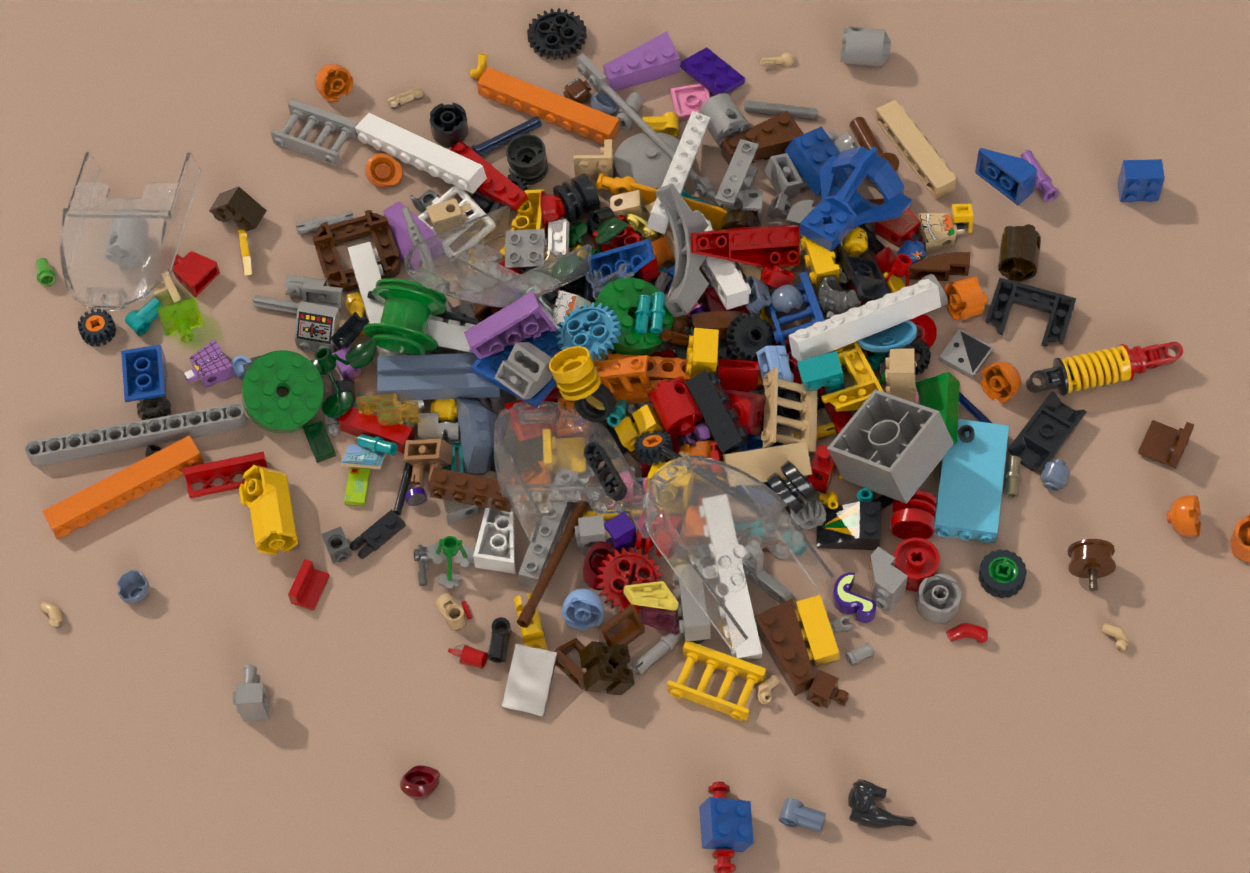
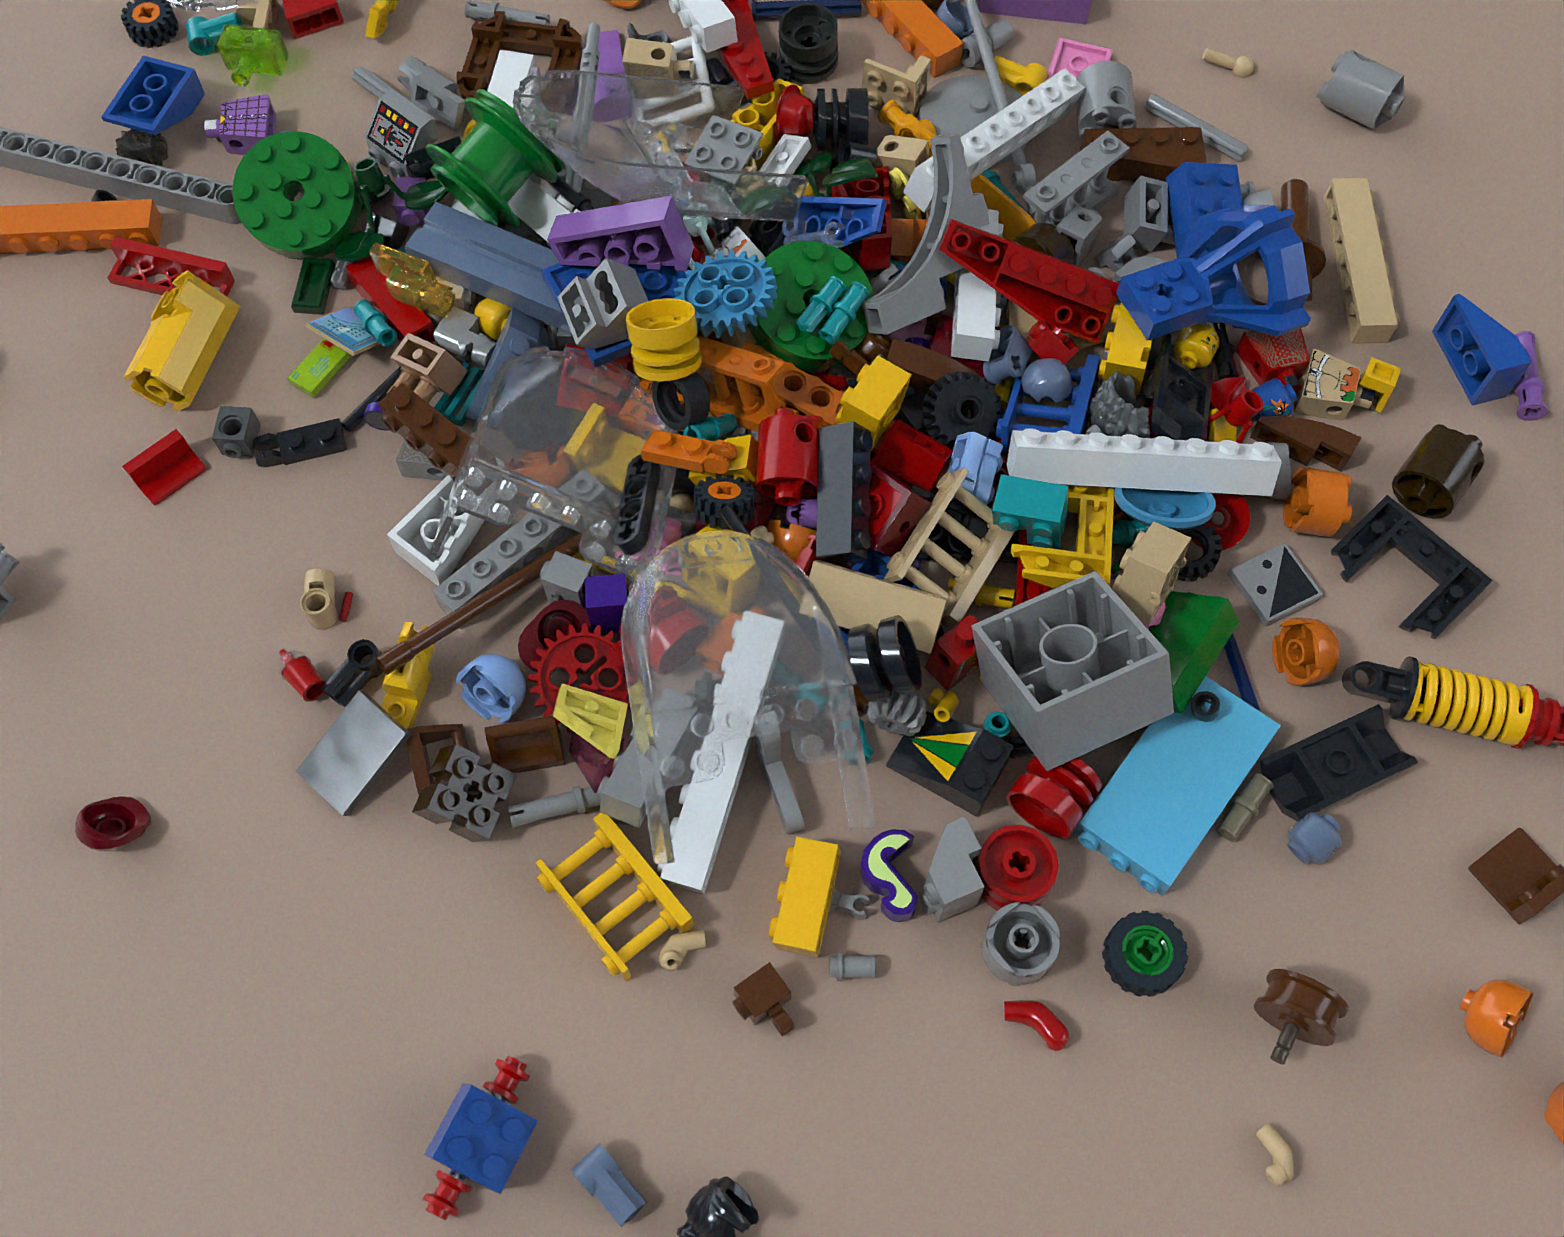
camera: 25 degrees right, 5 degrees up
(420, 556) = (333, 502): dark grey plate -> none
(444, 551) = (357, 507): plant -> none
(618, 430) = (688, 452): none -> orange hinge
(712, 72) = (1129, 39): dark purple plate -> none
(784, 642) = (748, 889): reddish brown wedge -> none

